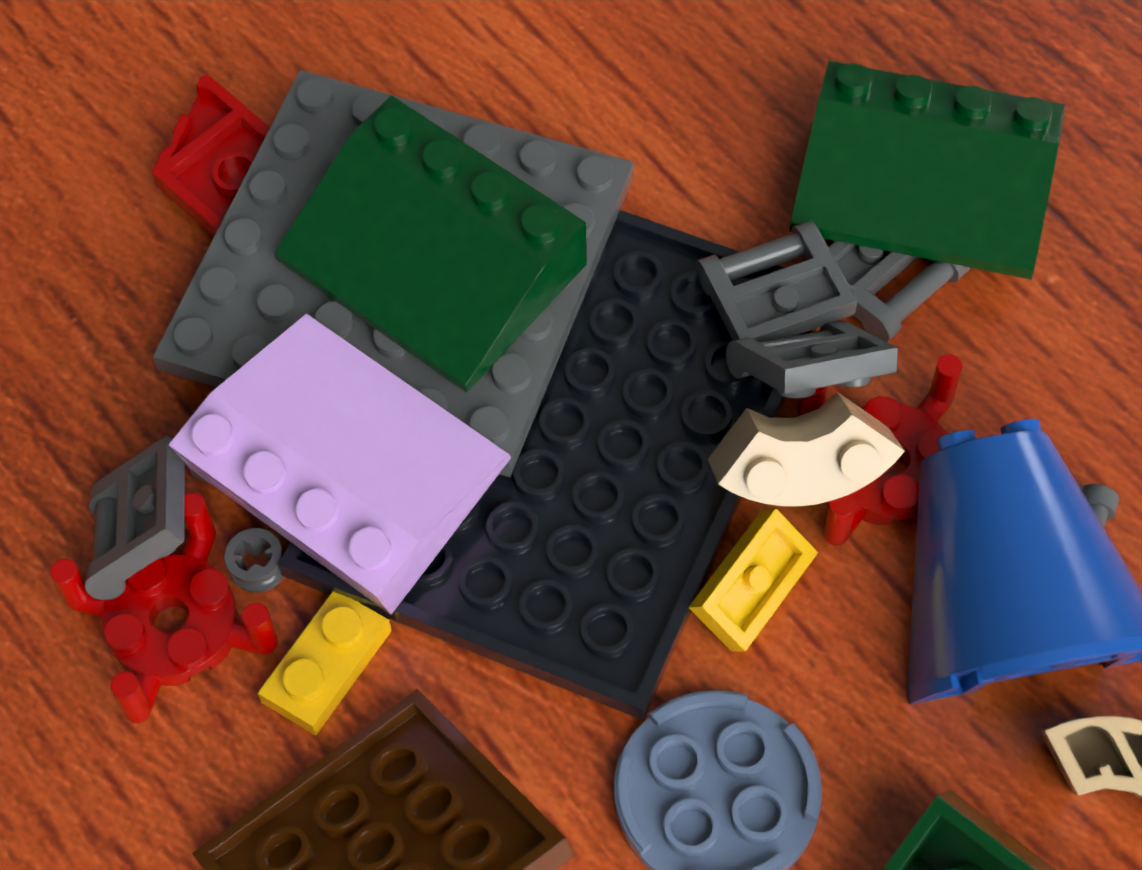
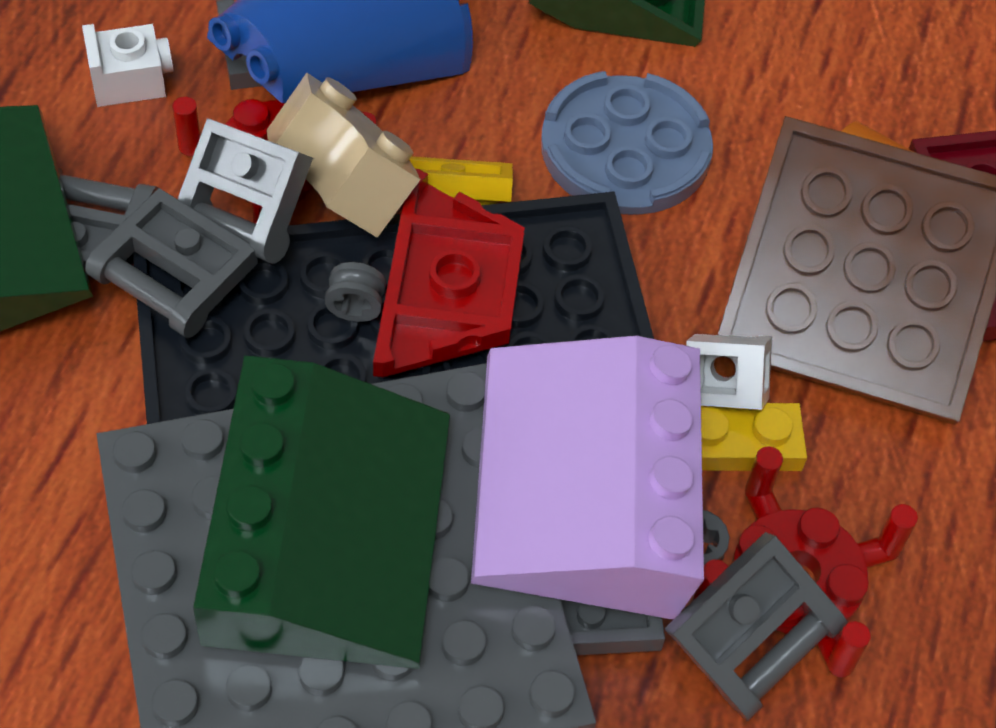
camera: 130 degrees left, 5 degrees down
(376, 669) = (751, 382): none -> white brick
(625, 487) = (447, 281): none -> red wing
(650, 400) = (355, 291): none -> dark grey bush
(1069, 377) = (127, 64): none -> white brick

